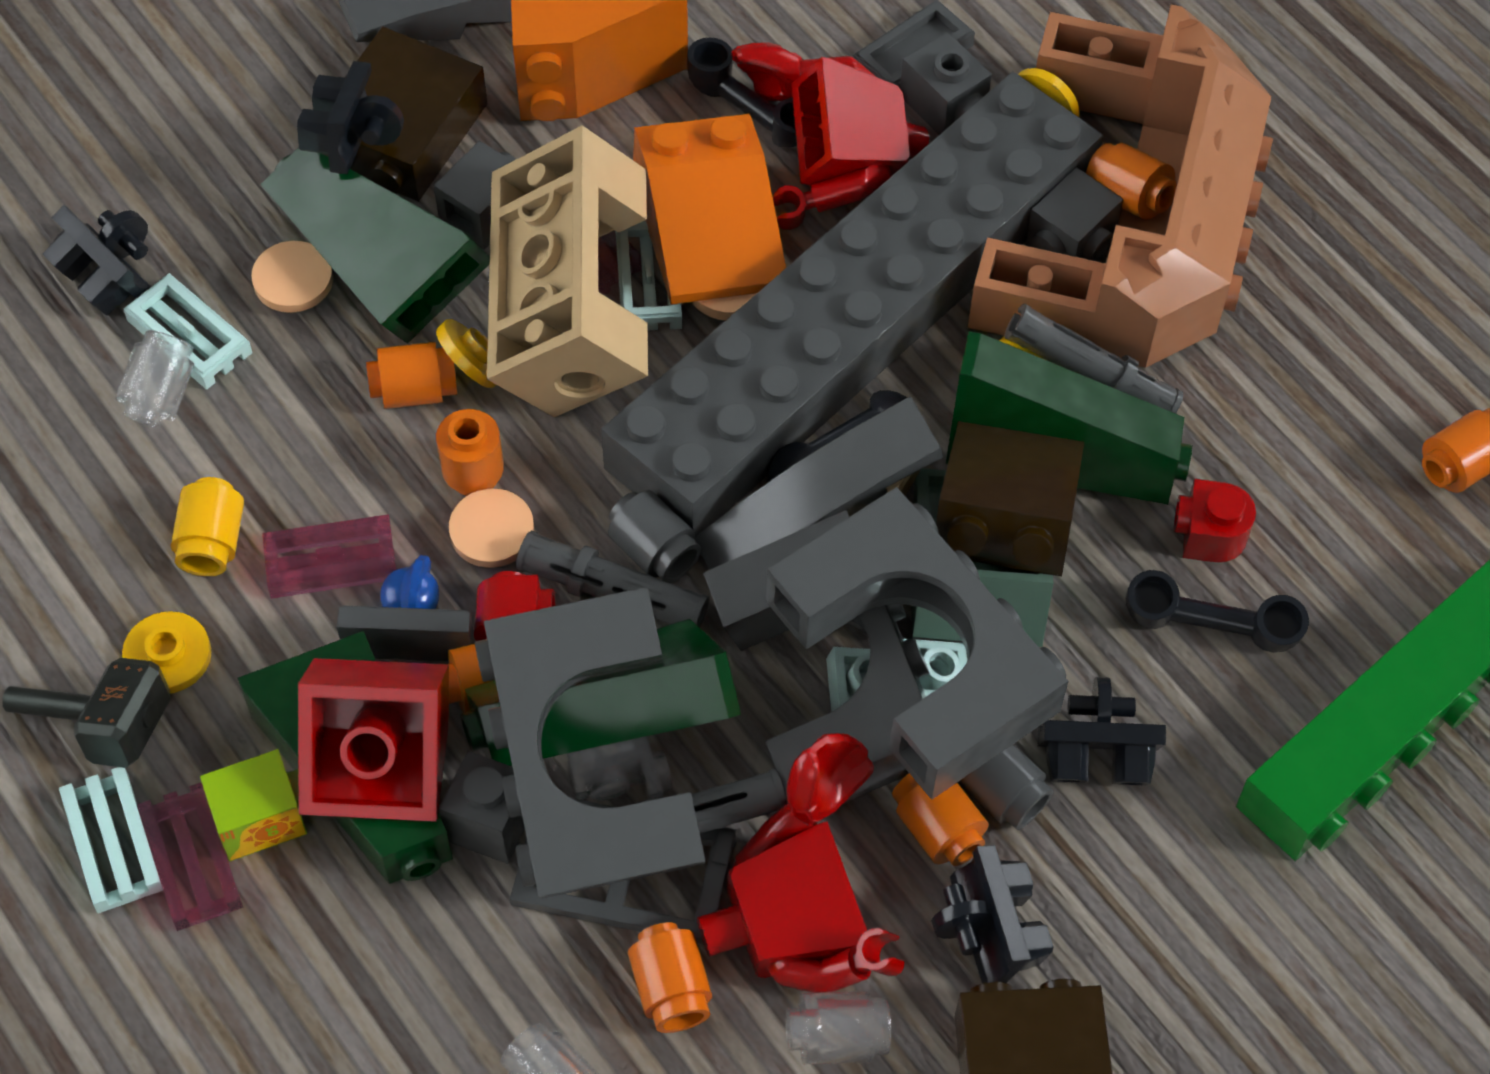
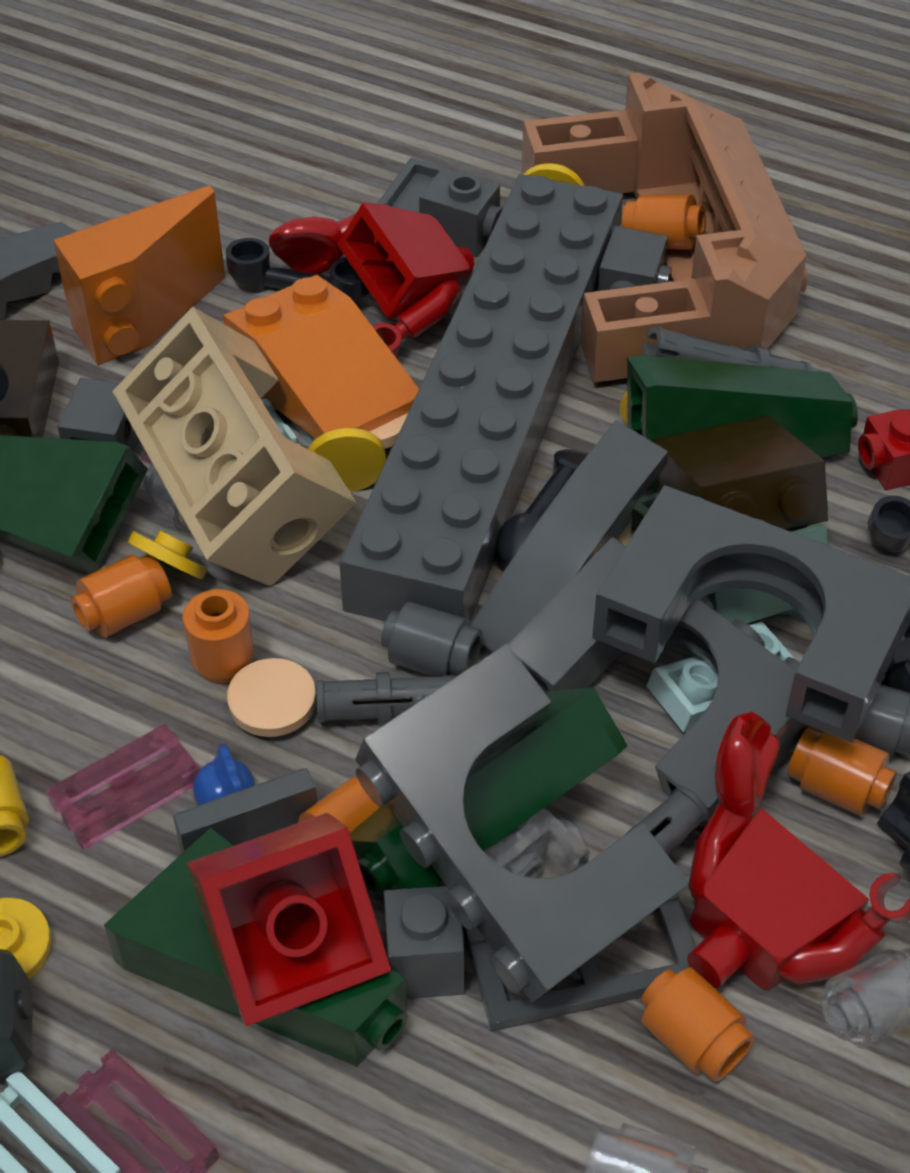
camera: 25 degrees left, 10 degrees down
(254, 804) = (184, 1042): lime brick -> none
(508, 595) = (330, 750): red plate -> none
(675, 320) = (354, 454): none -> yellow piece

